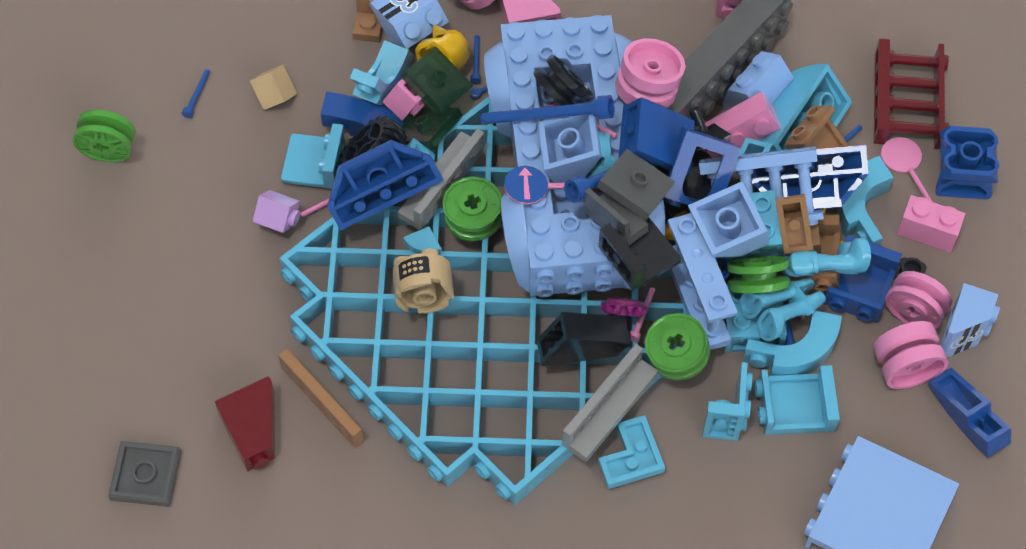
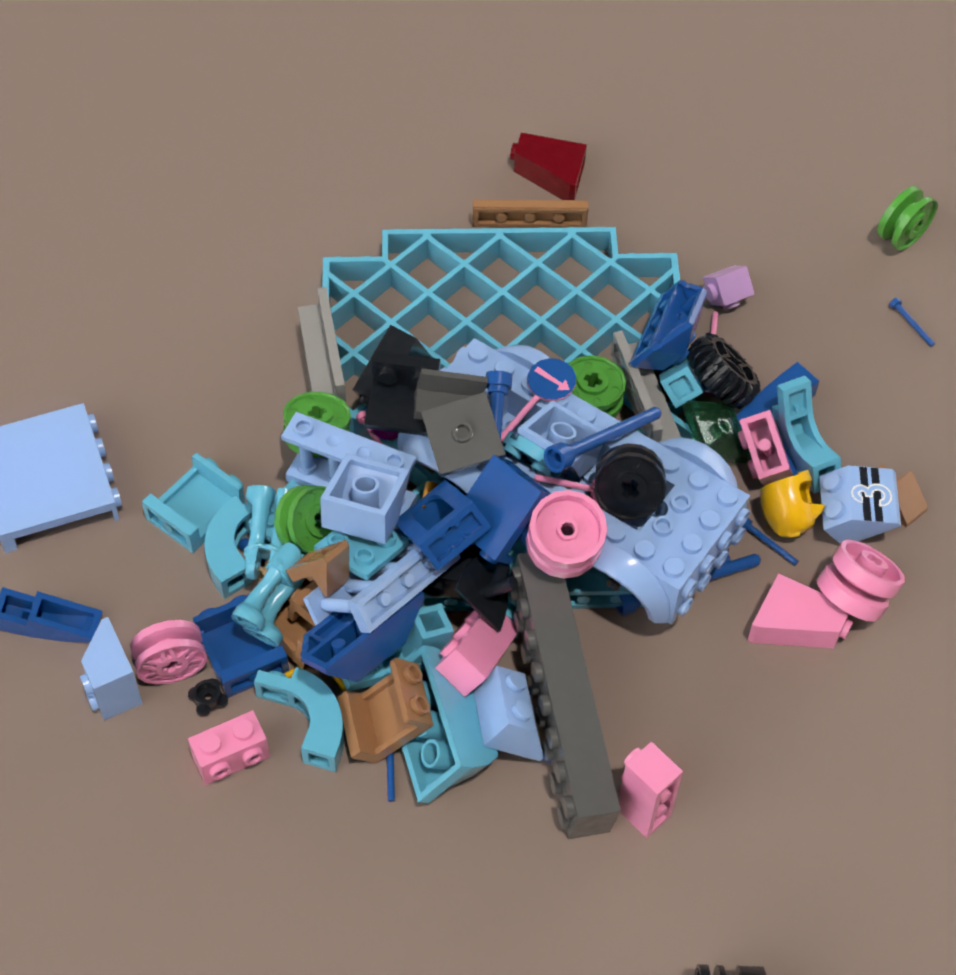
camera: 130 degrees right, 5 degrees down
(144, 473) = (576, 97): dark grey tile -> none
(273, 87) = (868, 368): tan panel -> none
(314, 158) = (763, 347): medium azure bracket -> none
(422, 240) = (594, 342): medium azure tile -> none
(423, 281) = (549, 298): tan brick -> none
(436, 81) = (754, 454): clear green plate -> none
(639, 458) = (271, 364): medium azure plate -> none
(726, 419) = (230, 433): medium azure bracket -> none
(884, 102) = (389, 836): dark red fence -> none
(903, 157) = (323, 810): bright pink piece -> none
(910, 355) = (131, 596): bright pink wheel -> none
(967, 162) = (250, 832): blue piece -> none

